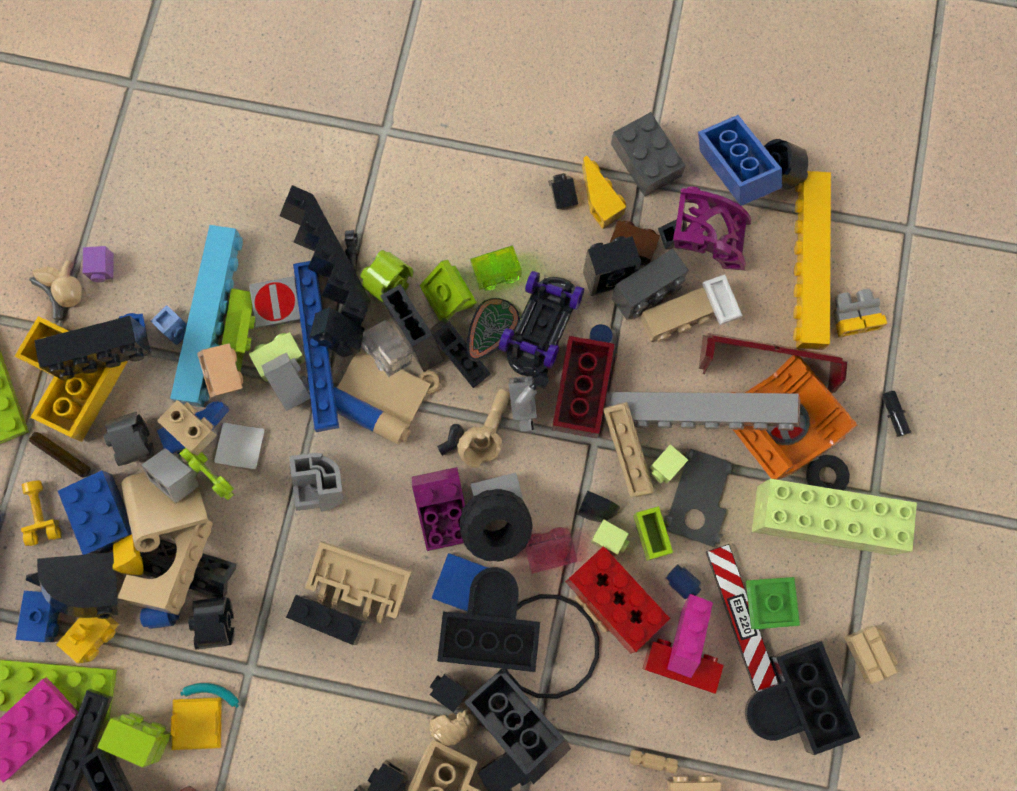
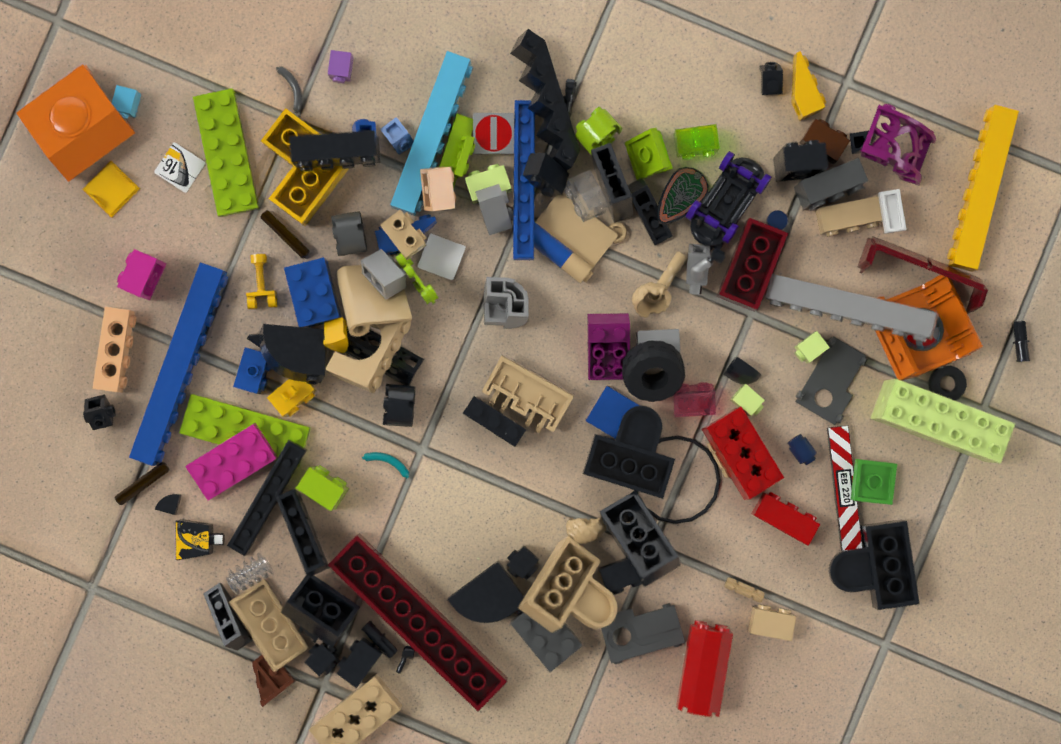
camera: 10 degrees right, 10 degrees up
(64, 288) = (308, 84): tan piece -> none
(157, 619) = (351, 392): blue brick -> none
(196, 723) = (371, 484): yellow piece -> none
(448, 691) = (586, 500): black brick -> none
(455, 433) = (631, 285): black arm -> none
(628, 449) = (780, 327): tan tile -> none
(647, 154) = (856, 59): dark grey brick -> none
(652, 533) = (785, 404): lime brick -> none
(690, 636) = (798, 495): dark pink brick -> none
(740, 160) = (938, 84): blue brick -> none
(792, 161) = (976, 95): black brick -> none
(858, 316) = (1010, 248): hips -> none
(871, 654) = (946, 540): tan brick -> none

